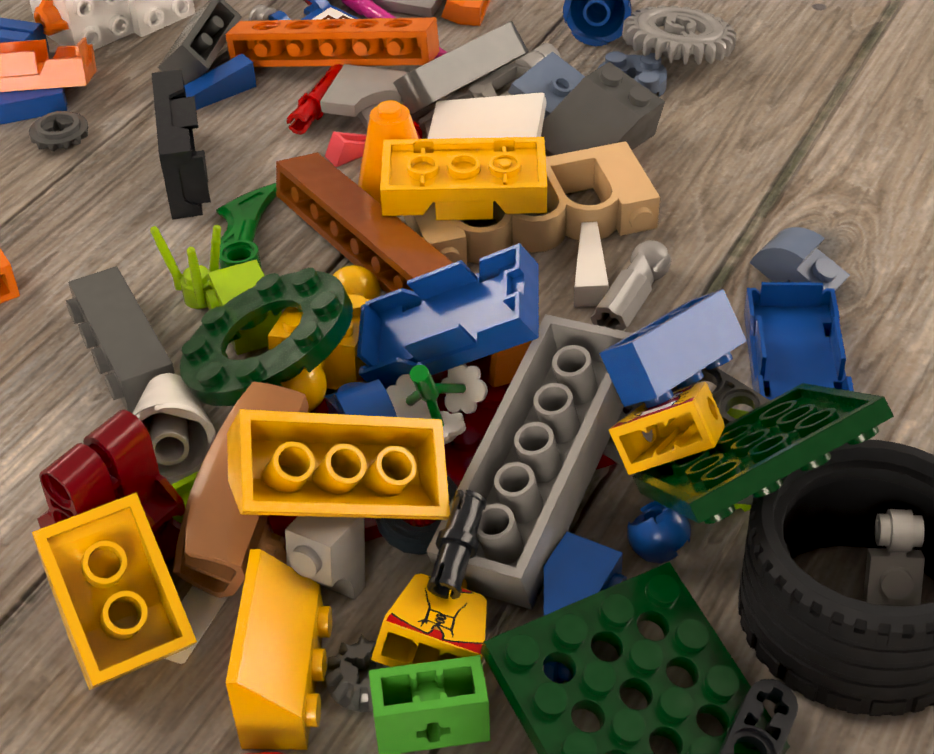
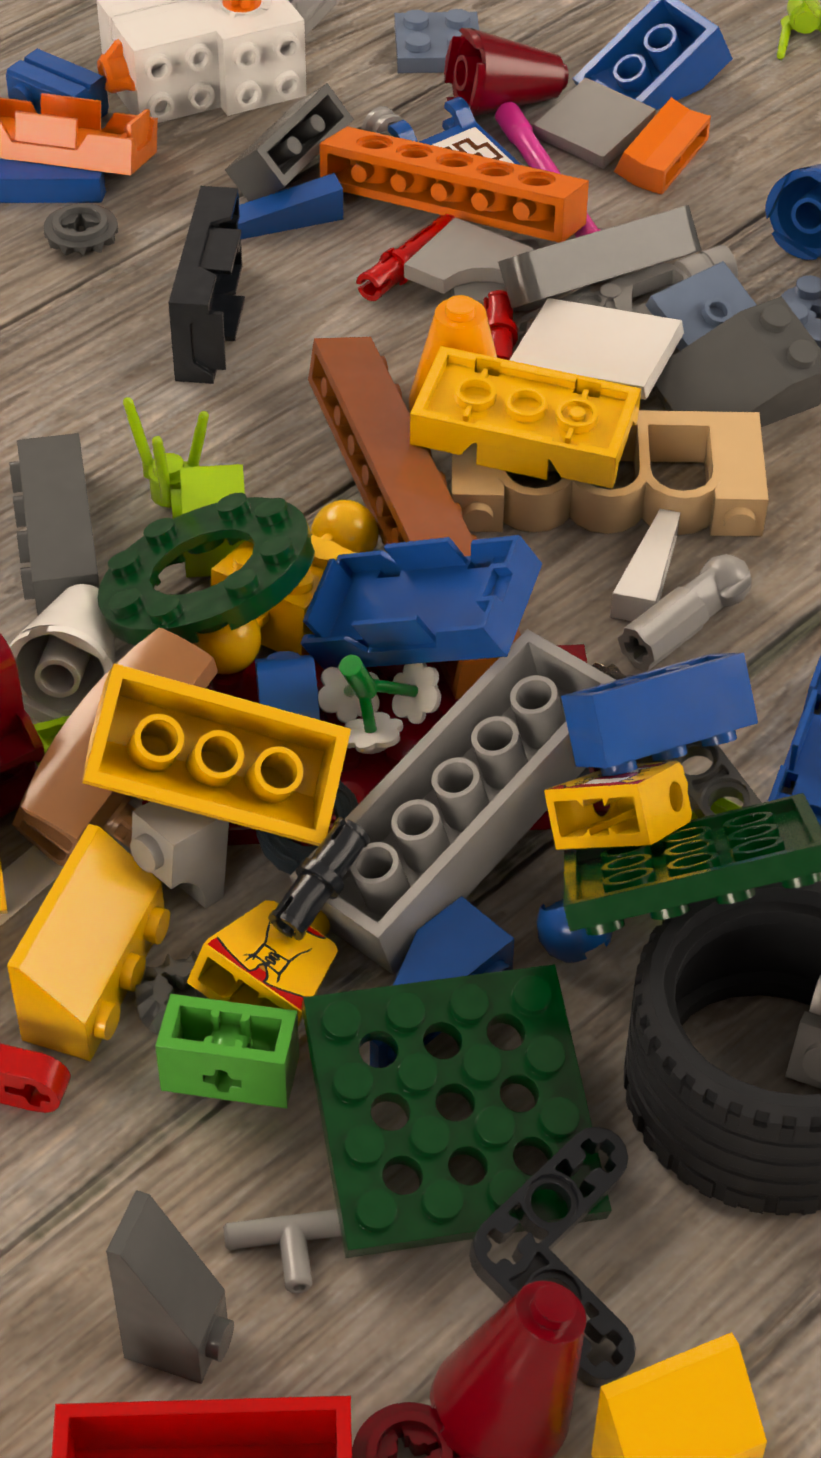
camera: 15 degrees right, 5 degrees up
(243, 219) = (257, 399): green piece -> none
(345, 147) = (410, 333): coral piece -> none

